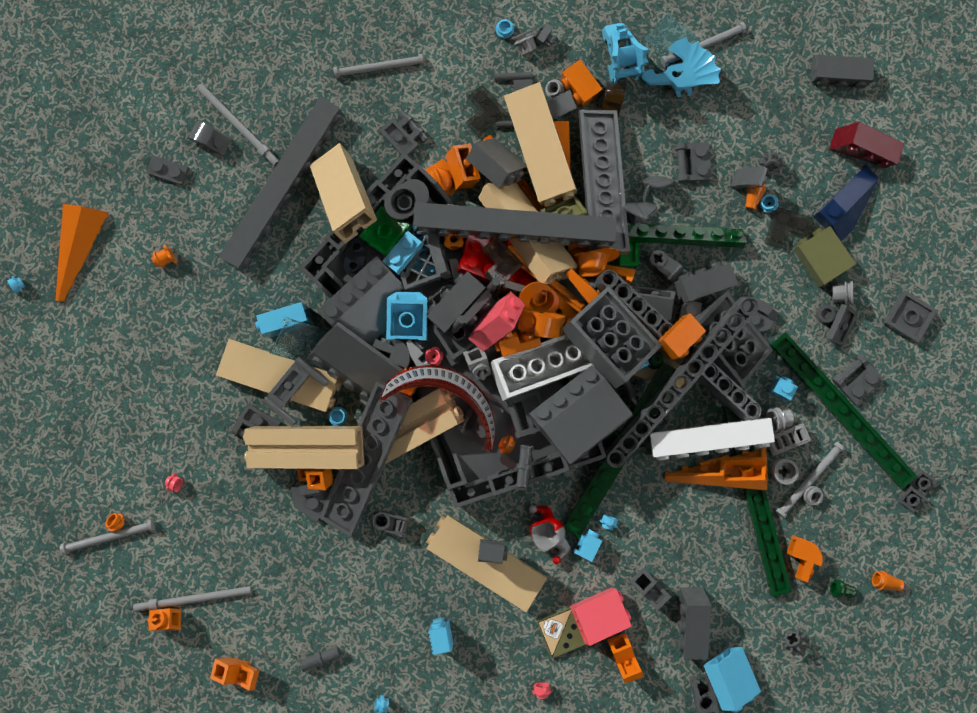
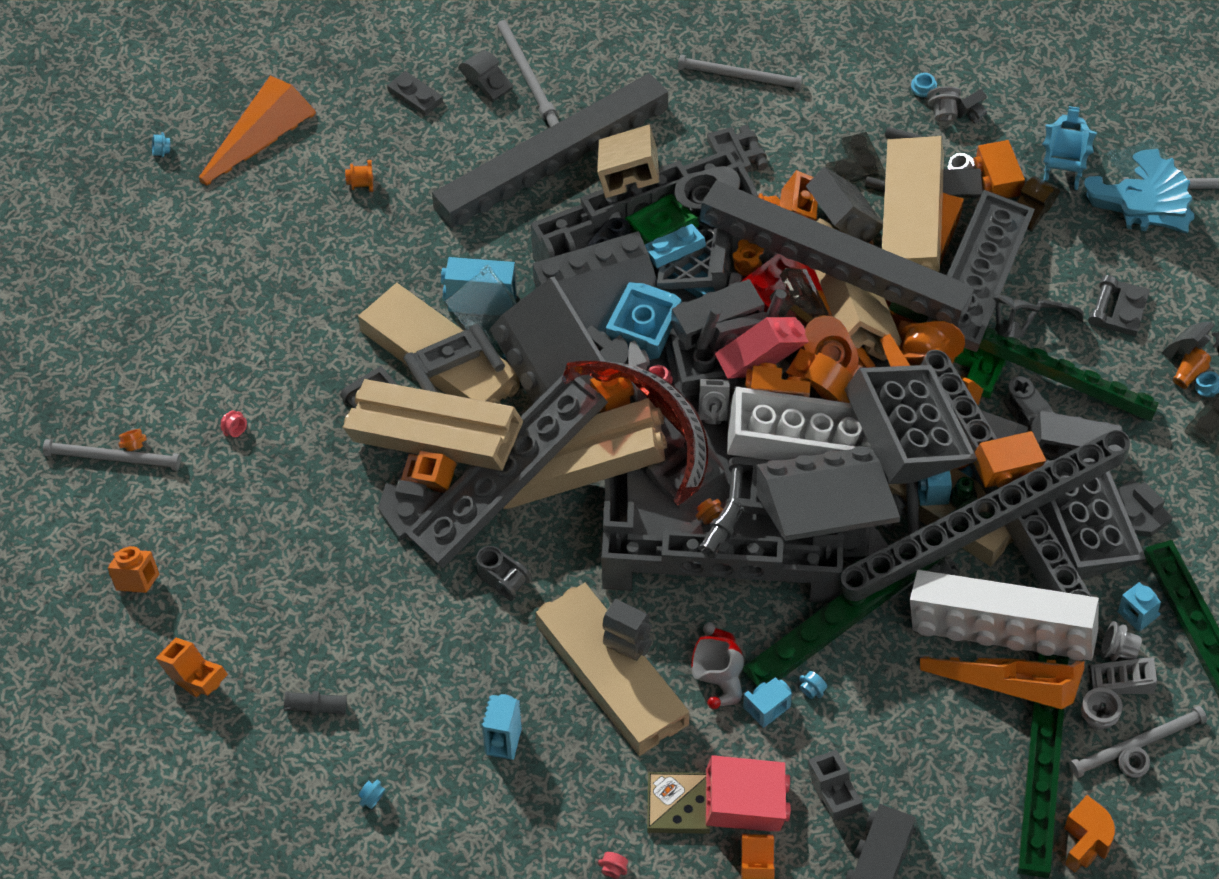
camera: 25 degrees right, 30 degrees down
(156, 604) = (195, 570): light grey bar -> none

